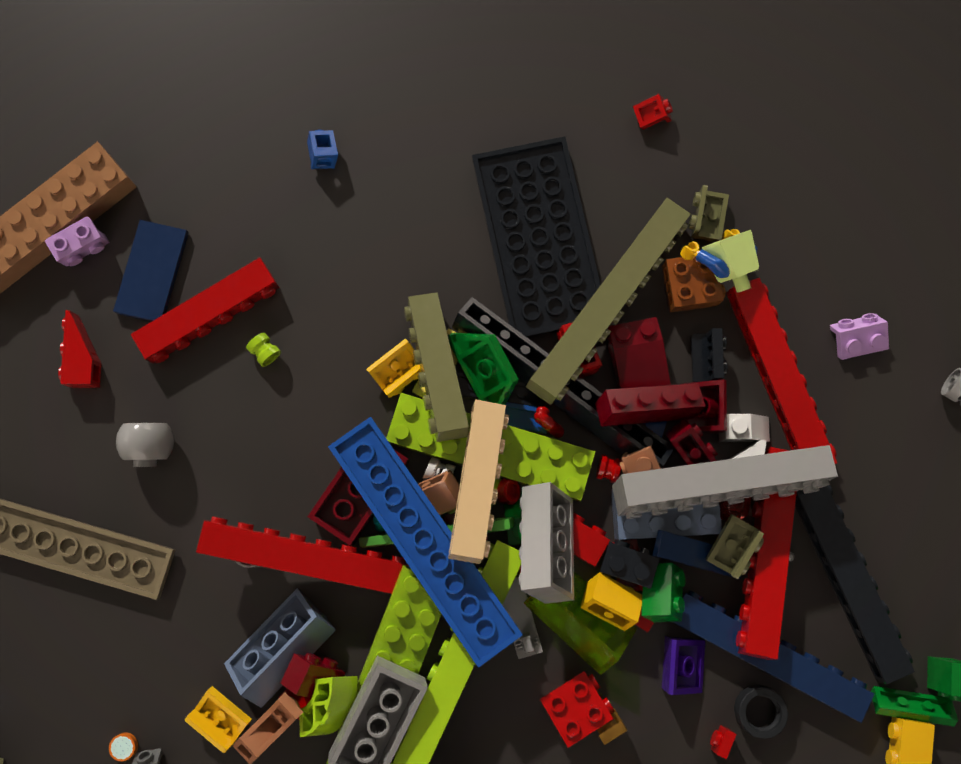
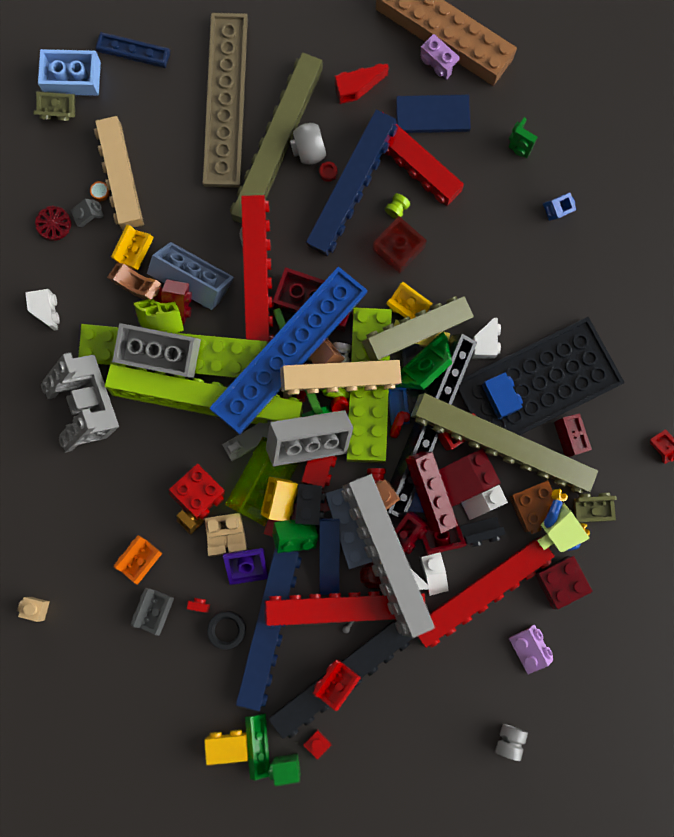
camera: 75 degrees right, 0 degrees up
(104, 714) = (119, 172): none -> tan brick
(116, 478) = (279, 131): none -> olive brick
(188, 426) = (328, 171): none -> red tile
(215, 399) = (351, 183): none -> dark blue brick
(223, 170) = (521, 139): none -> green bracket
(316, 360) = (399, 244): none -> clear red brick
(470, 283) = (487, 341): none -> white slope
(547, 284) = (502, 395): none -> blue brick
(615, 215) = (572, 435): none -> dark red hinge
(639, 683) = (216, 532): none -> tan hips
(675, 342) = (484, 502): none -> white slope
(735, 546) = (342, 578): olive bracket -> none
(791, 276) = (563, 582): none -> dark red brick
(865, 586) = (336, 684): none -> red bracket
(923, 628) = (317, 744): none -> red plate

